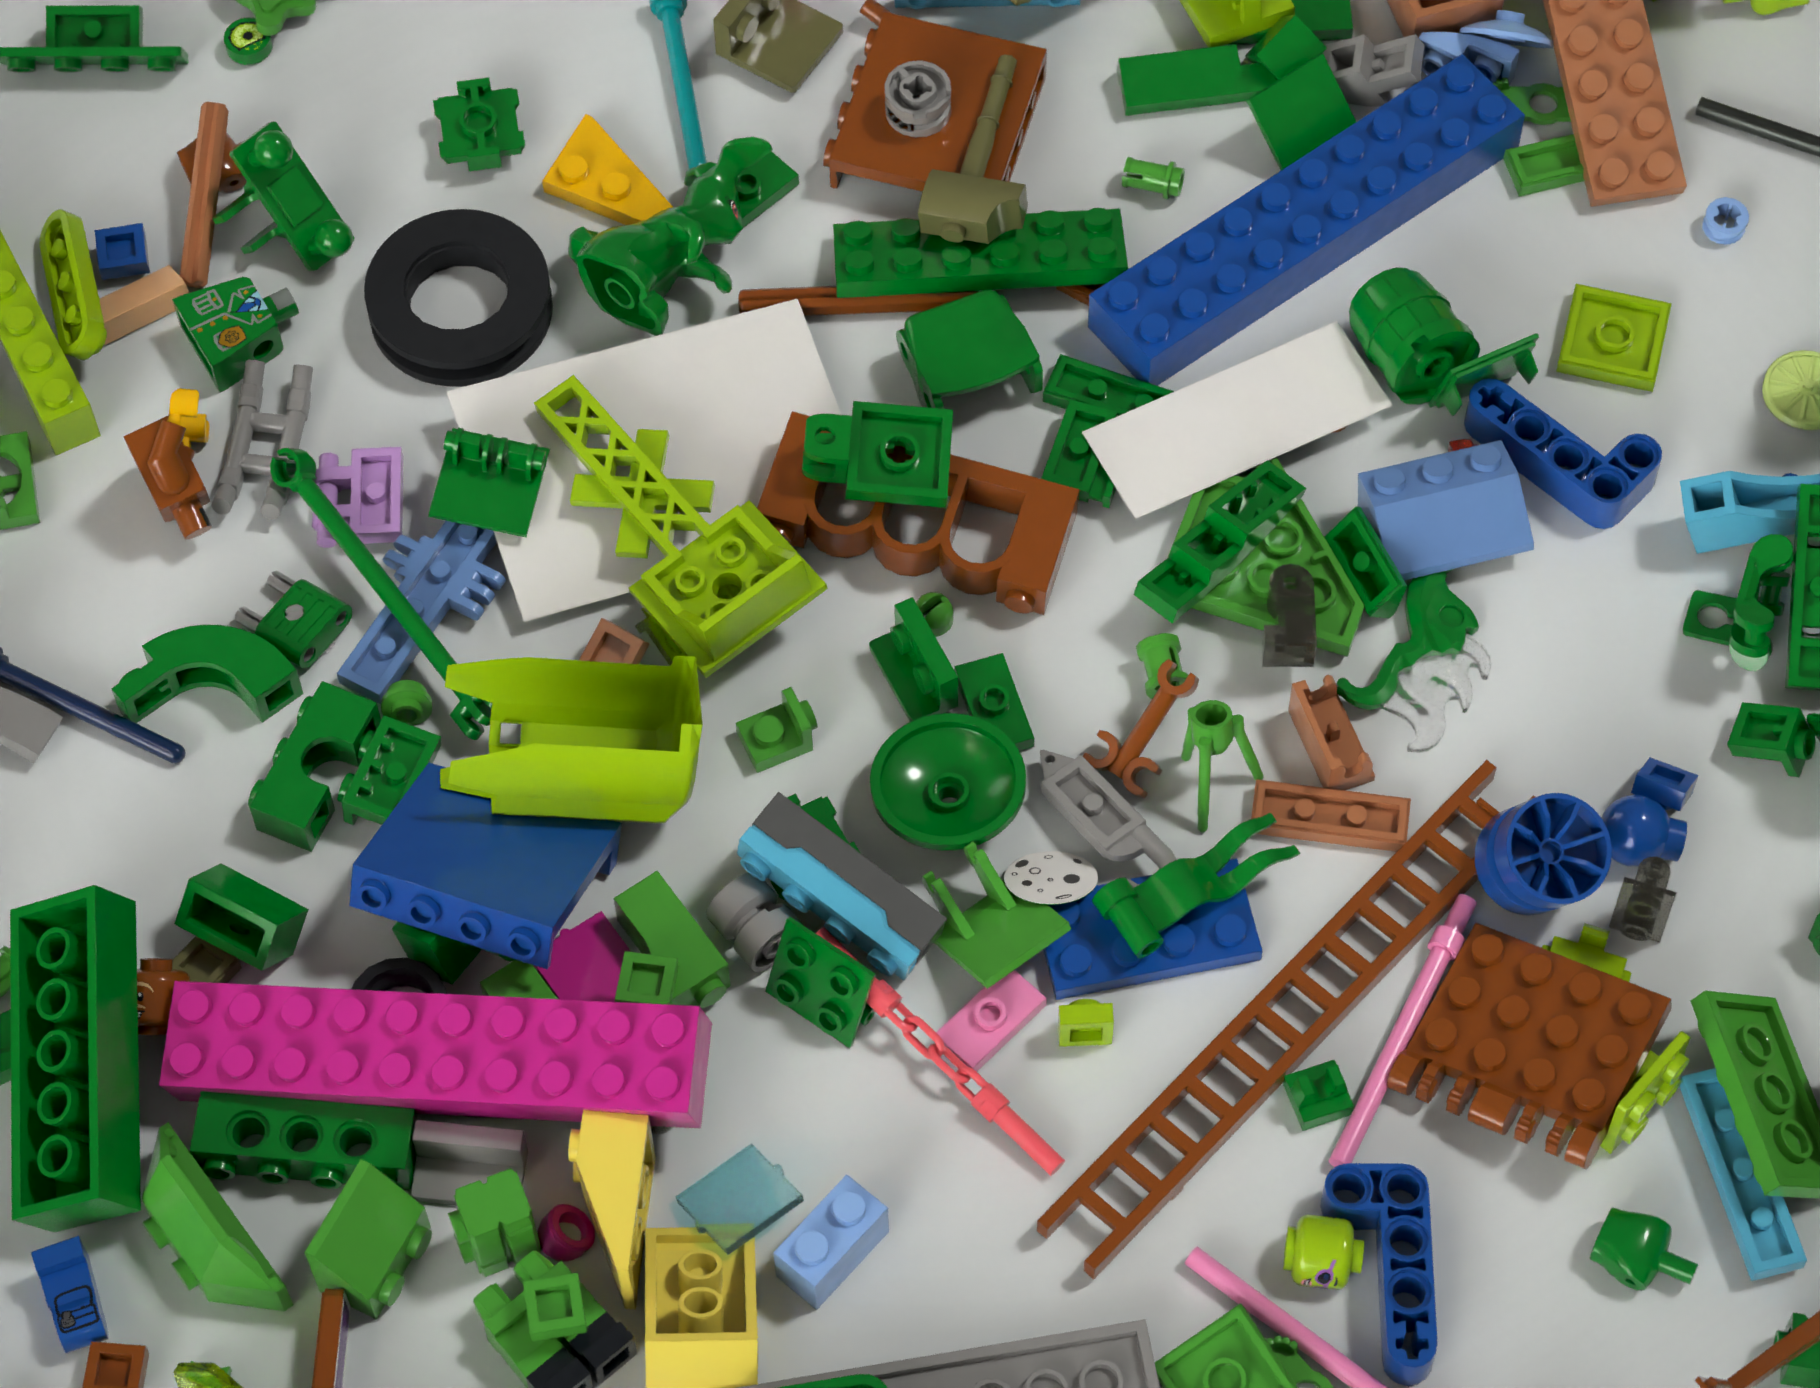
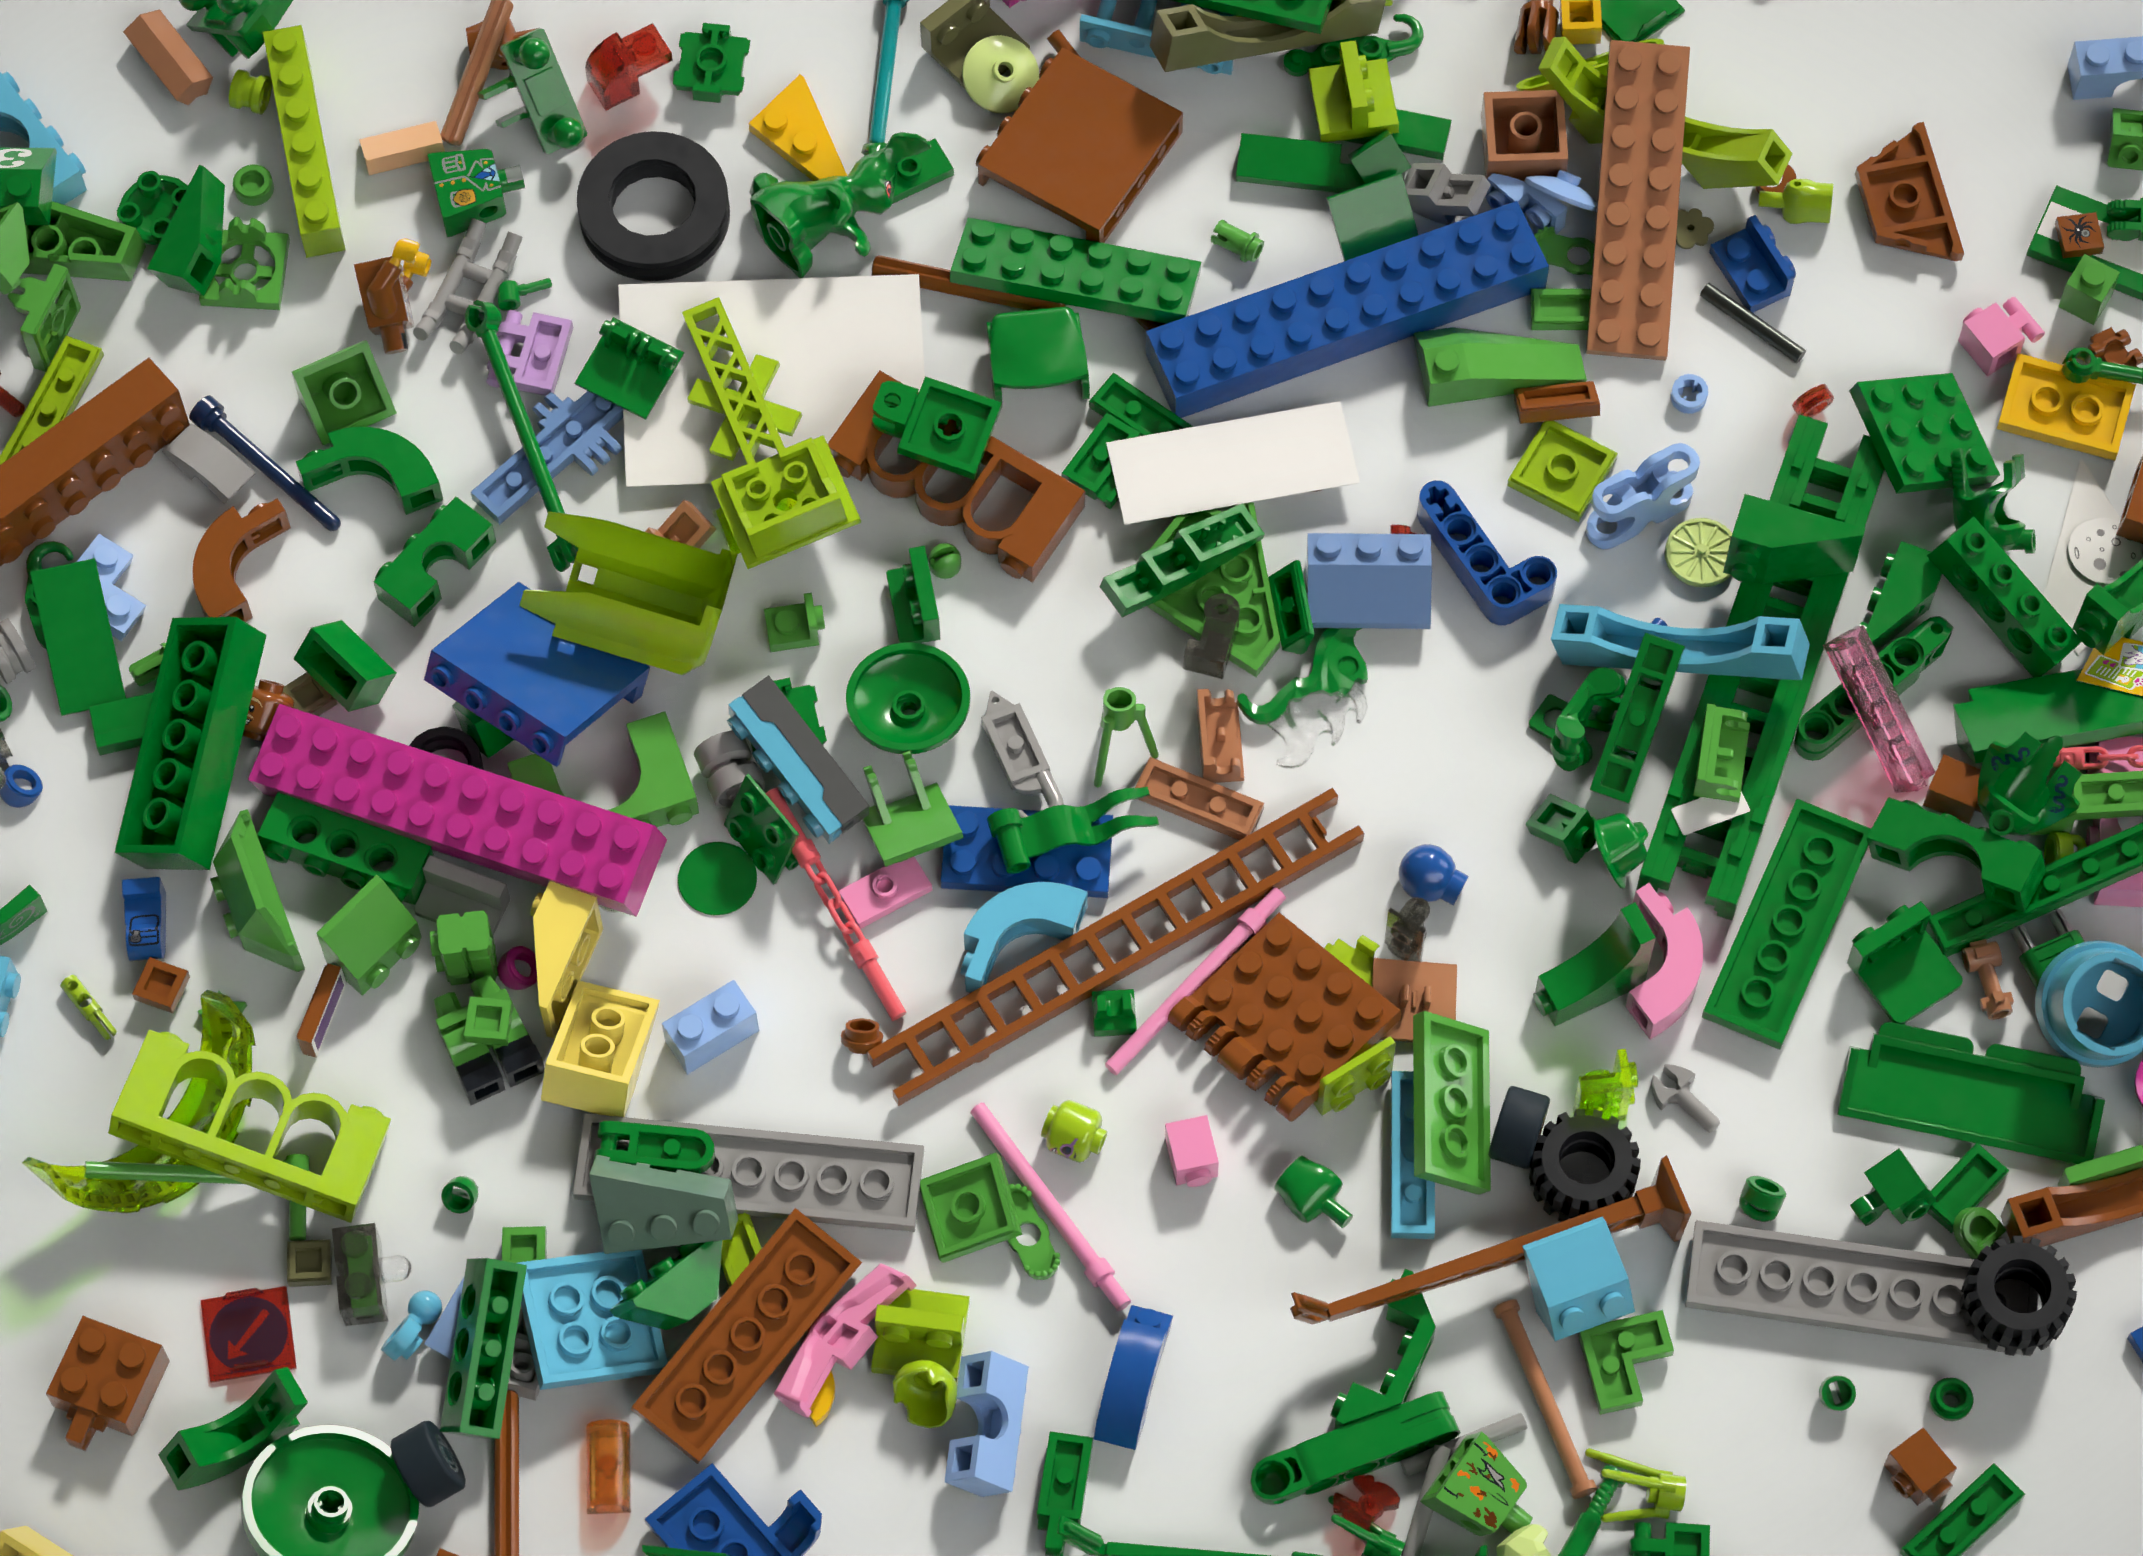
camera: 15 degrees right, 5 degrees up
(50, 812) = (222, 551): none -> dark orange arch
(72, 285) = (353, 121): lime plate -> none
(122, 251) = (401, 101): blue plate -> none
(145, 593) = (343, 391): none -> bright green slope
(301, 622) = (455, 443): green piece -> none
(317, 434) = (510, 292): none -> green hand
(370, 148) = (619, 62): none -> clear red brick
(388, 768) = (490, 574): green bracket -> none
(407, 702) = (517, 529): bright green plate -> none
(586, 961) = (598, 771): dark pink piece -> none
(647, 979) = (629, 795): bright green plate -> none
(739, 1198) = (654, 976): clear light blue piece -> none
(778, 1058) = (717, 878): none -> green sticker
(805, 71) = (984, 81): none -> yellowish green dish
(902, 92) = (1062, 131): light grey wheel -> none
(966, 203) = (1073, 230): olive piece -> none
(994, 698) = (969, 642): green plate -> none
(1021, 1203) = (861, 1035): none -> dark orange plate
(1051, 877) = (965, 793): white sticker -> none
(1085, 1023) = (952, 911): lime plate -> none
(1125, 760) = (1053, 713): dark orange bar -> none
(1155, 651) = (1107, 649): bright green bush -> none
(1171, 997) = (1017, 912): none -> medium azure arch
(1395, 1271) = (1124, 1161): blue beam -> none
(1410, 333) = (1393, 428): green piece -> none
(1475, 1238) = (1191, 1151): none -> bright pink brick
(1485, 245) = (1482, 364): none -> bright green wedge
(1495, 365) = (1450, 472): green piece -> none
(1543, 854) = (1342, 873): blue wheel -> none
(1581, 264) = (1556, 402): none -> dark orange tile
(1664, 784) = (1464, 842): blue plate -> none
(1666, 43) = (1700, 227): none -> olive plant
(1674, 968) = (1414, 989): none -> nougat piece
(1725, 339) = (1642, 496): none -> light blue piece
(1745, 65) = (1754, 265): none -> blue bracket

